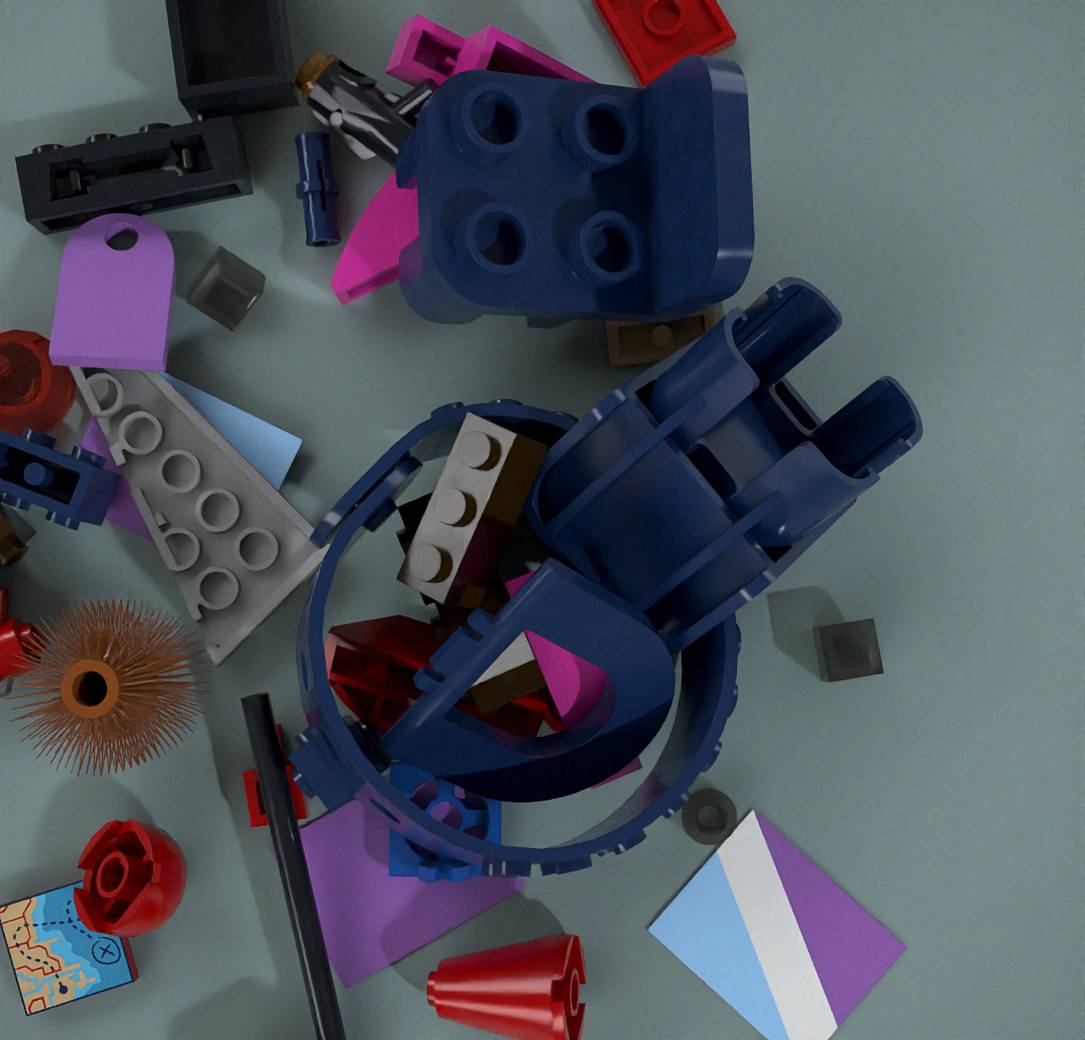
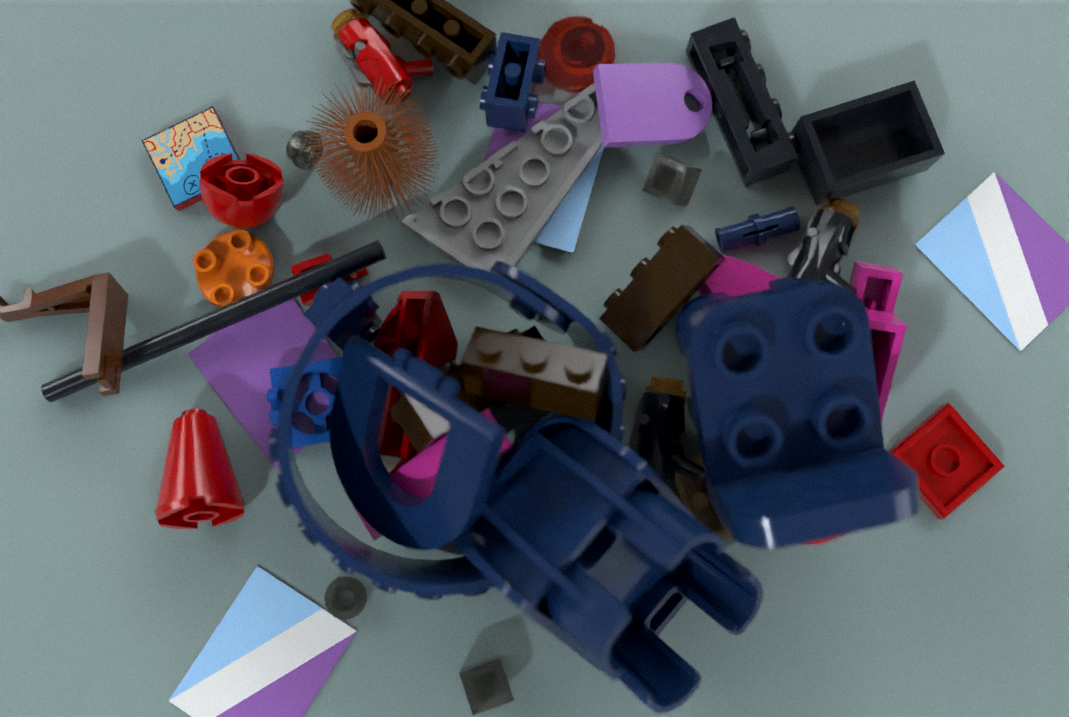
camera: 80 degrees right, 5 degrees down
(86, 790) = (297, 146): none -> clear smoke plate
(237, 908) = (233, 267): none -> orange dish
(375, 331) = (660, 286): none -> dark brown brick
(565, 372) = (659, 429): none -> black piece

